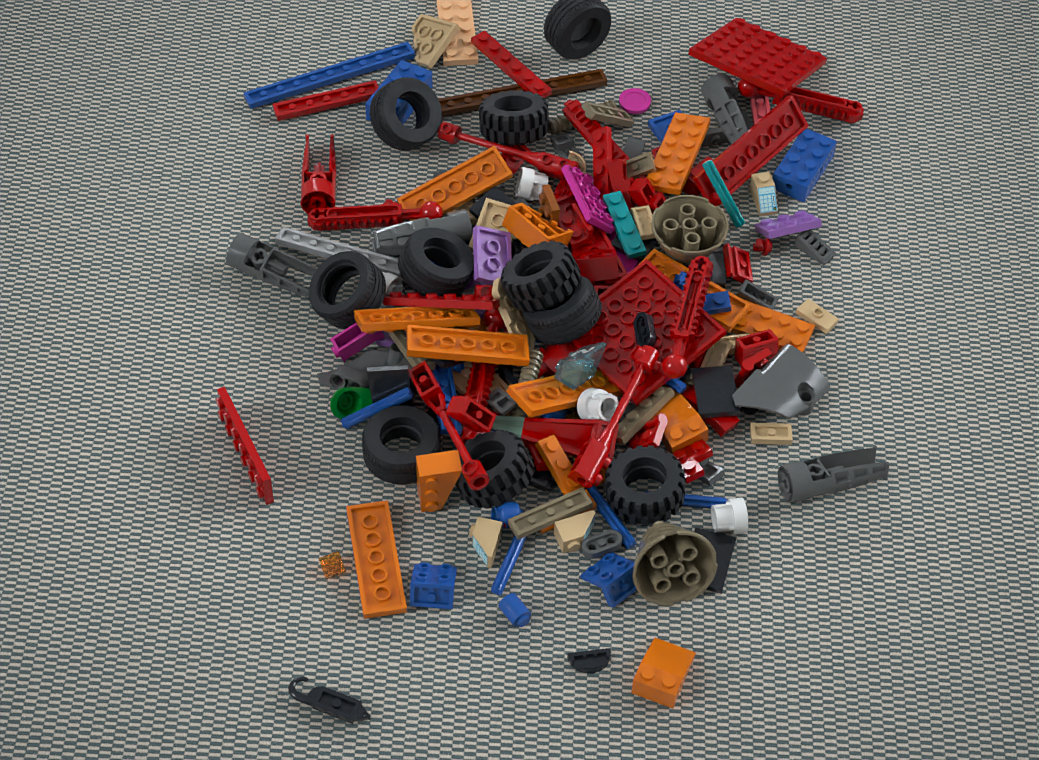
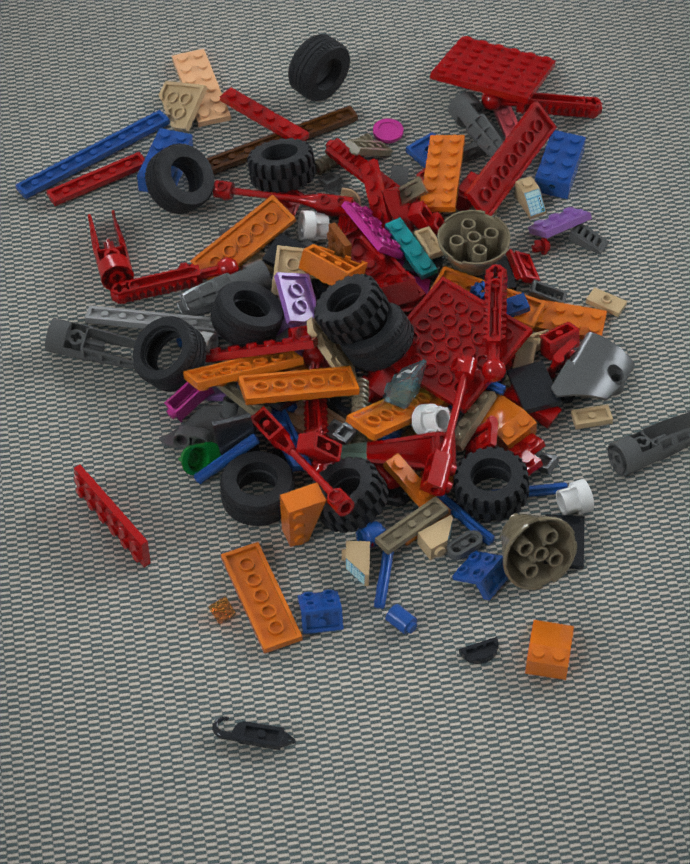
camera: 10 degrees left, 0 degrees up
(644, 329) = (457, 341): black plate -> none
(723, 193) = (494, 202): teal axle -> none

